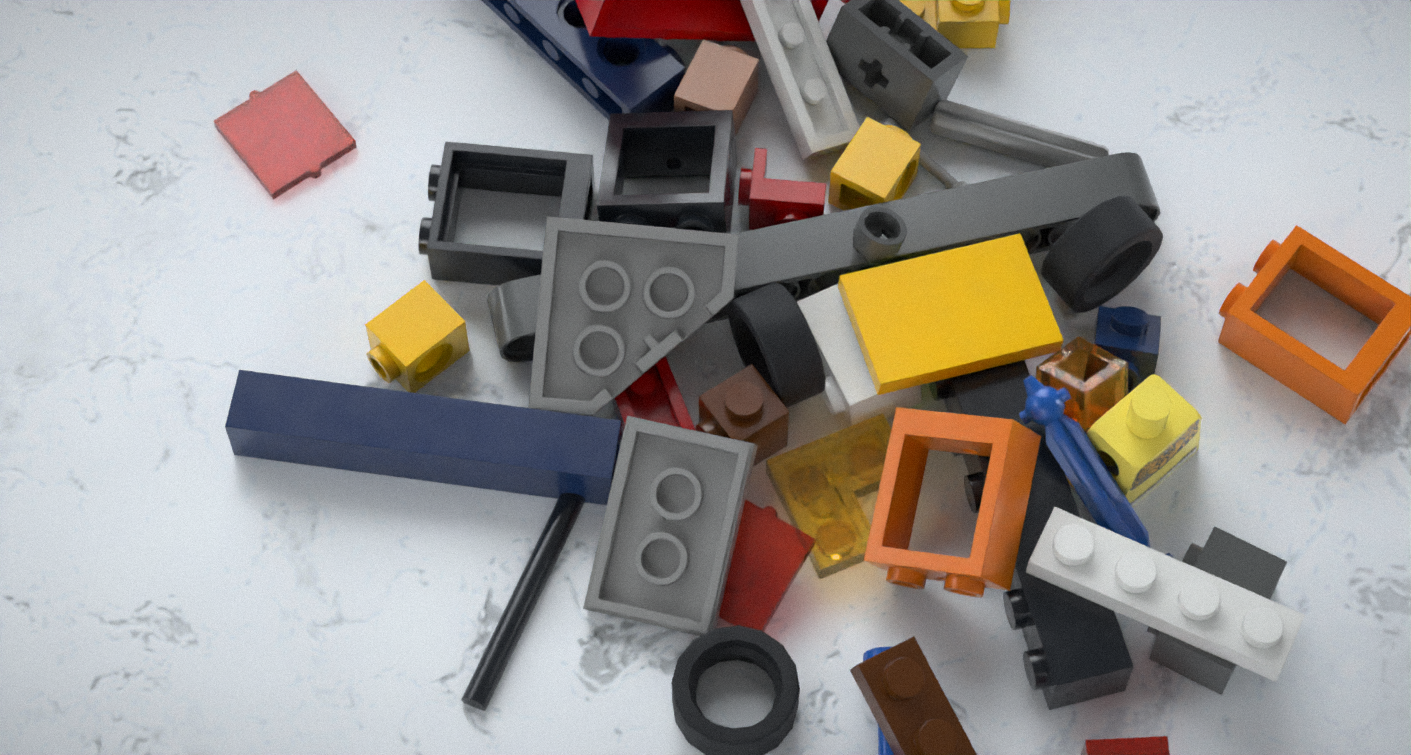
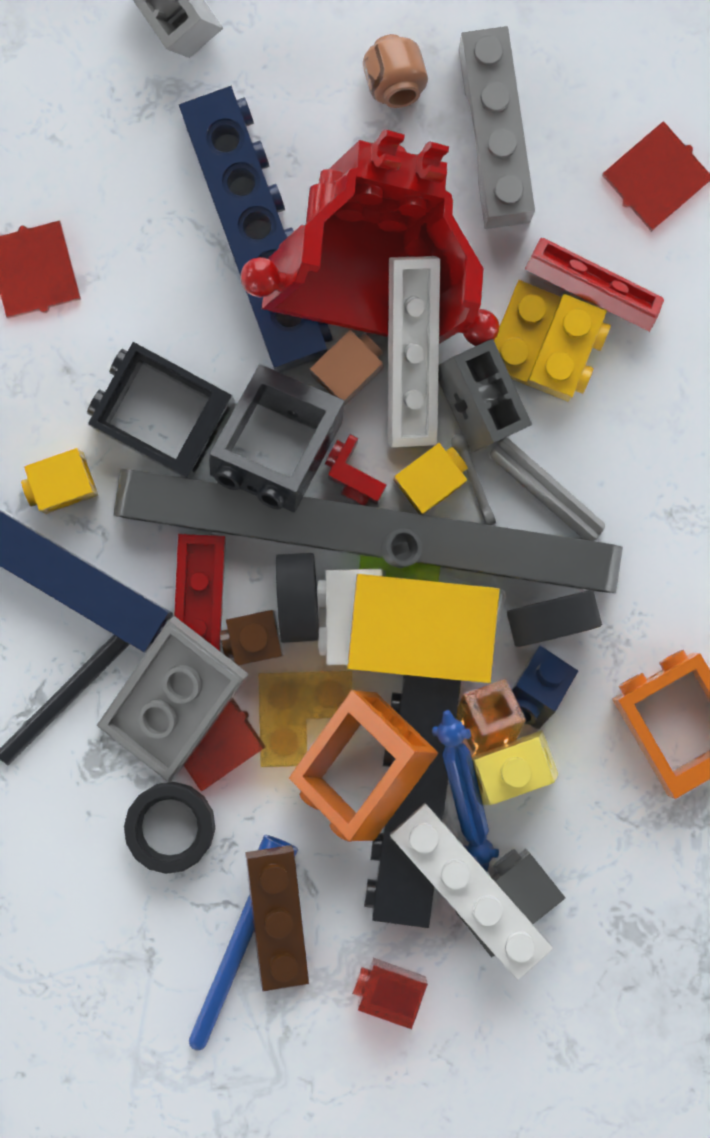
camera: 20 degrees right, 25 degrees up
(619, 304) = (199, 530): light grey plate -> none

